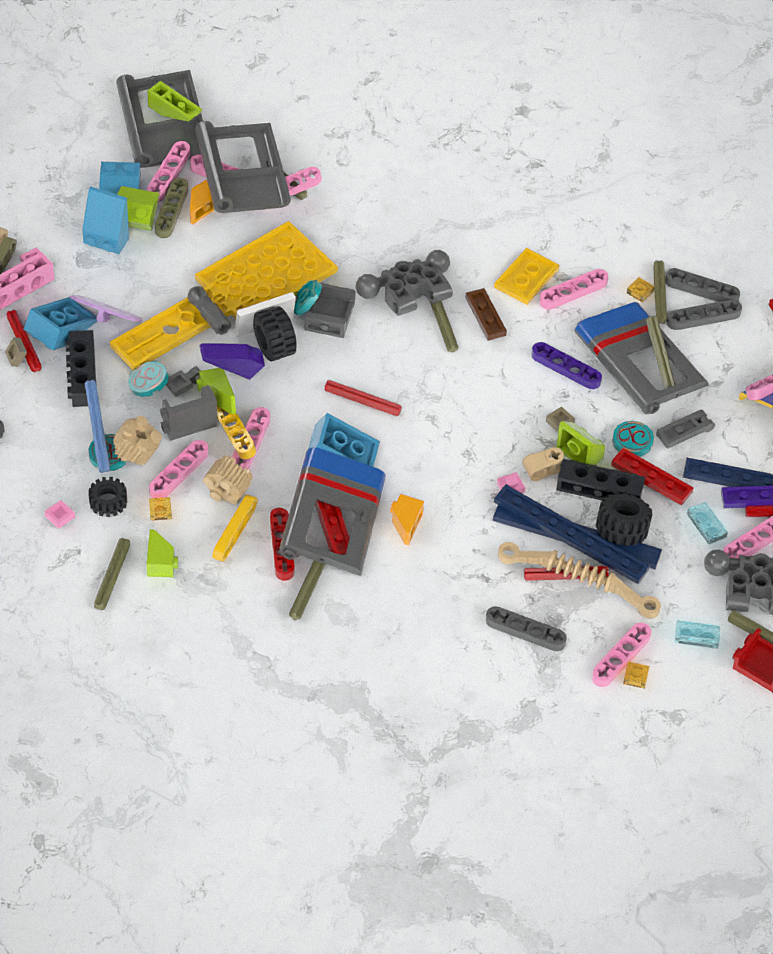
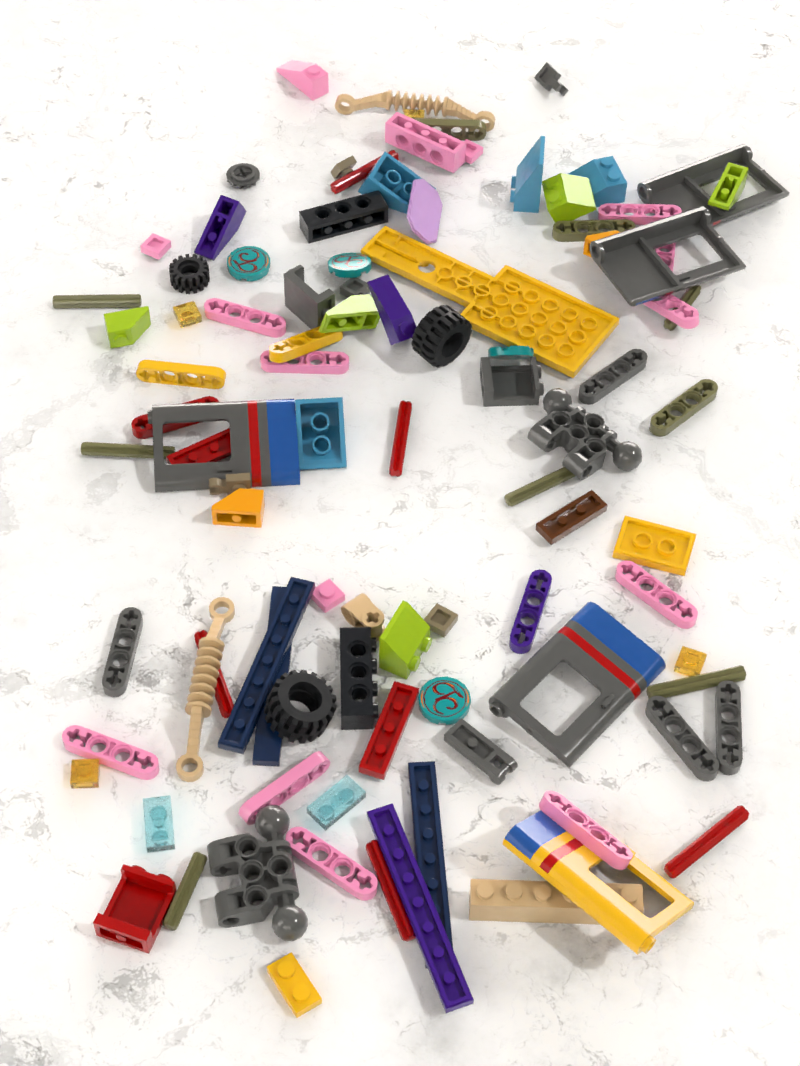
camera: 75 degrees right, 0 degrees up
(59, 460) = (221, 227): none -> dark purple slope
(97, 426) = (265, 238): medium blue axle -> none
(136, 440) = (259, 259): tan brick -> none
(209, 311) = (453, 282): dark grey piece -> none
(227, 480) = (231, 348): tan brick -> none
(245, 316) = (482, 332): white tile -> none
(342, 247) = (609, 373): none -> dark grey beam
(381, 514) = (230, 484): none -> dark tan plate
(399, 213) = (679, 404): none -> olive beam
(660, 351) = (585, 696): olive axle -> none
(687, 550) = (285, 786): none -> bright pink beam

